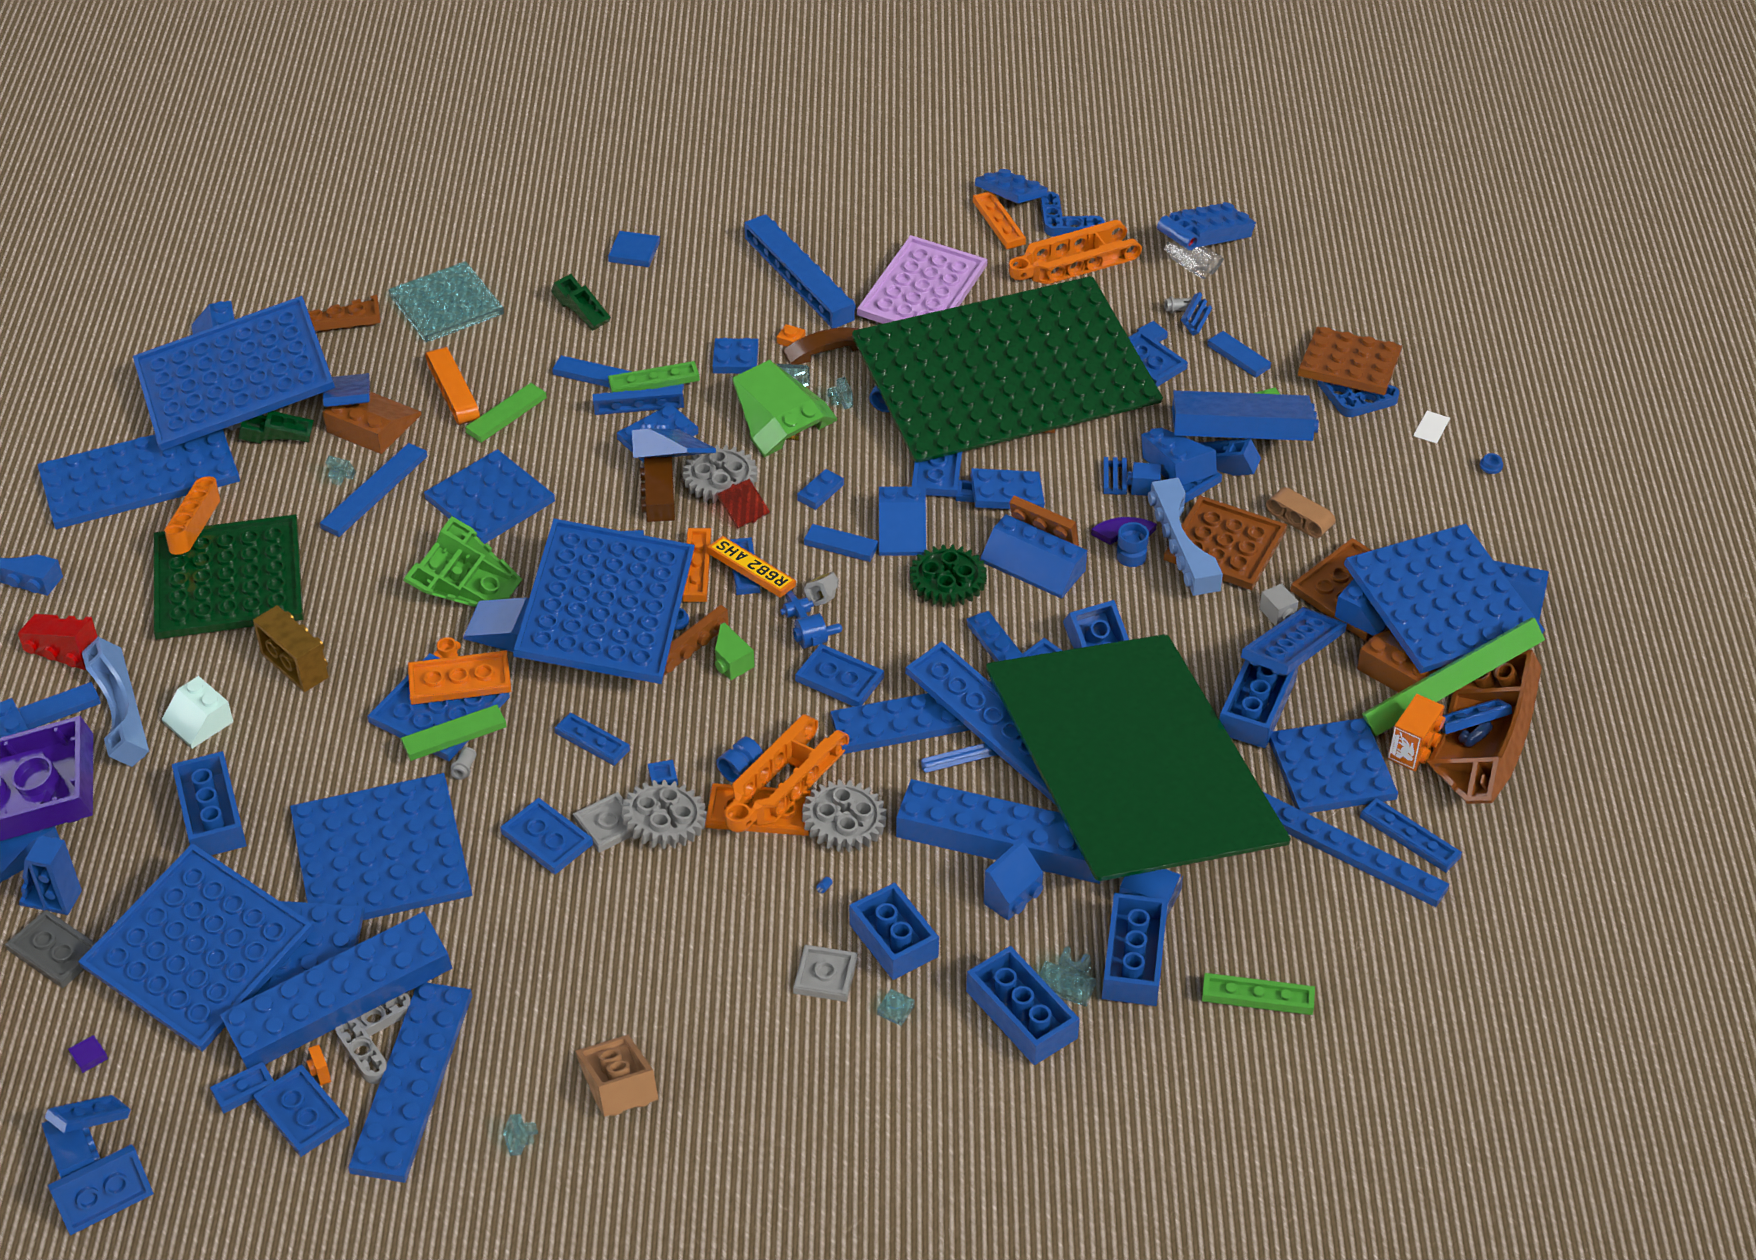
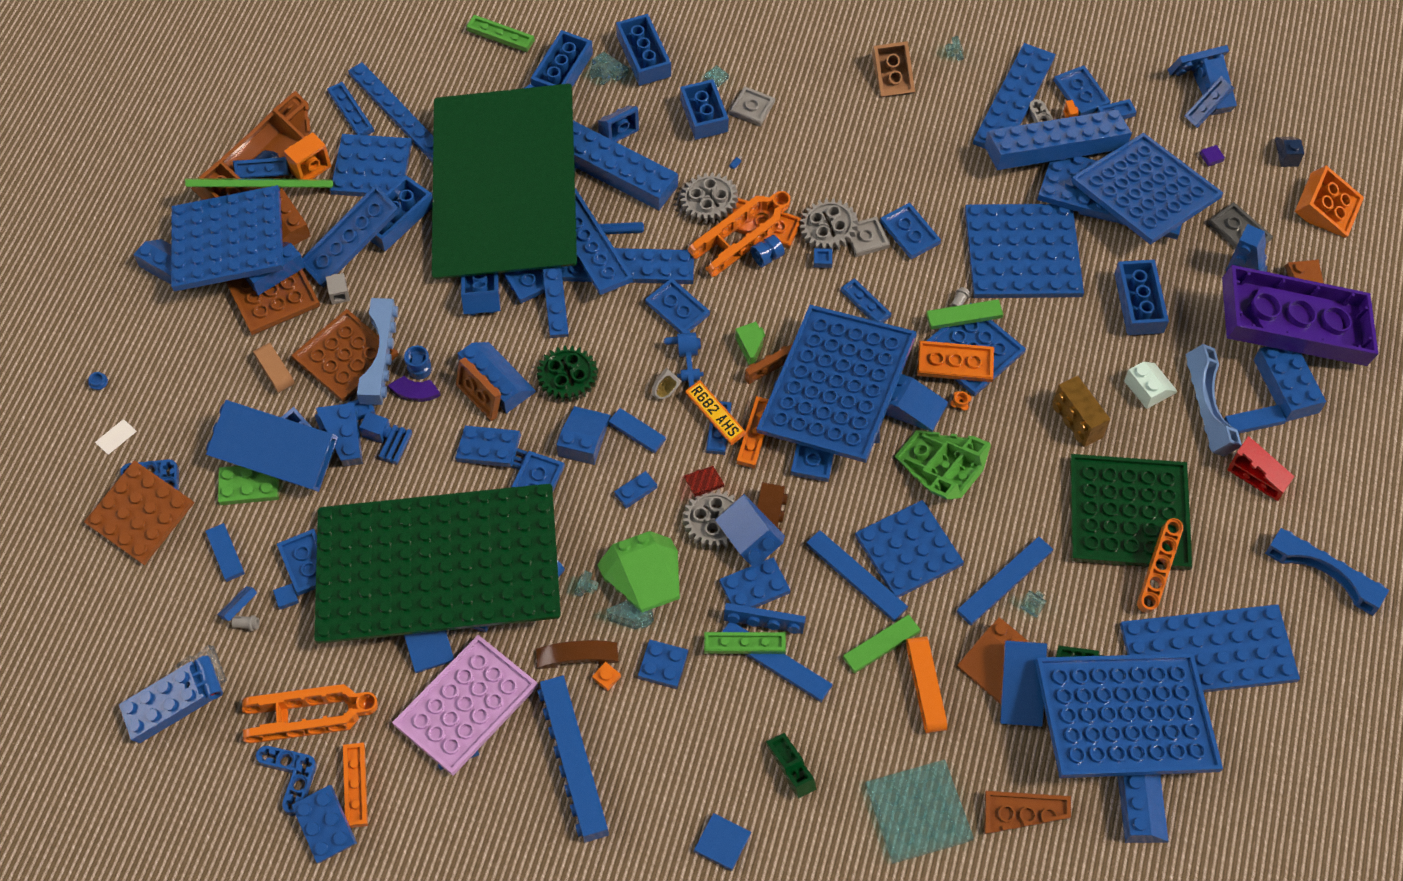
camera: 165 degrees left, 15 degrees up
(547, 462) = (857, 576): none -> blue tile

